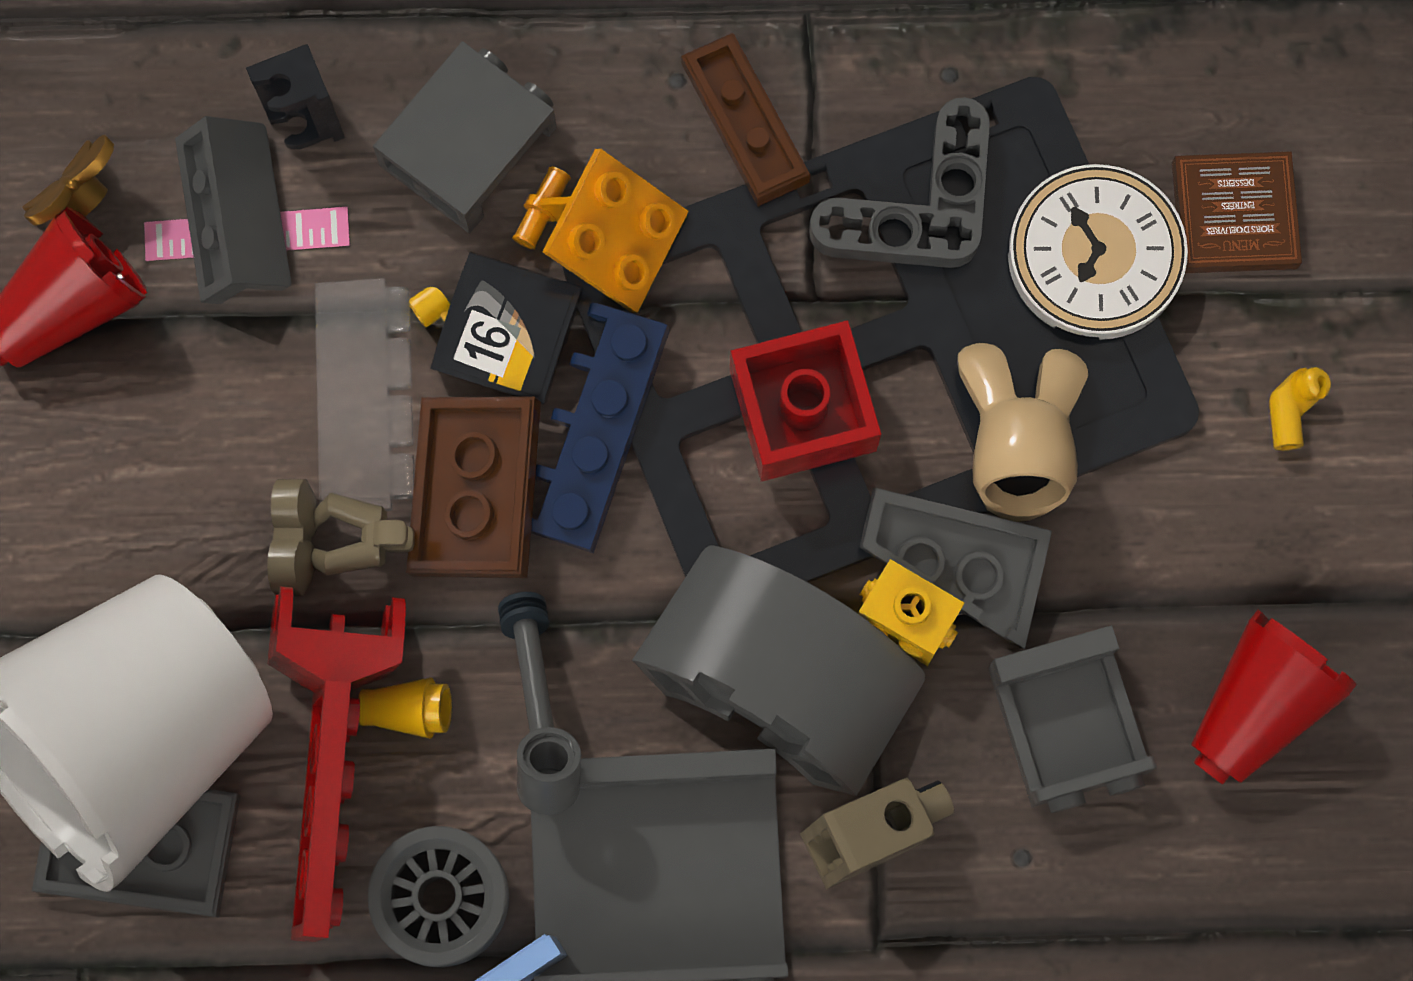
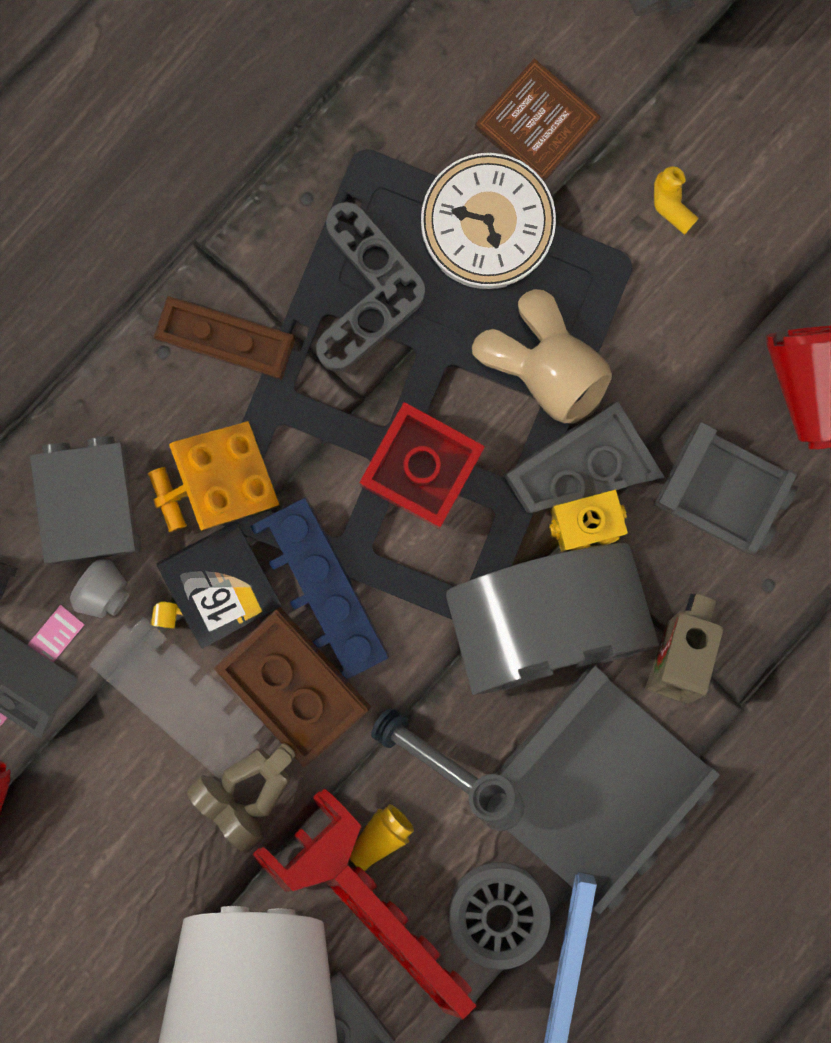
camera: 50 degrees left, 10 degrees up
(395, 222) = (100, 590): none -> light grey cone

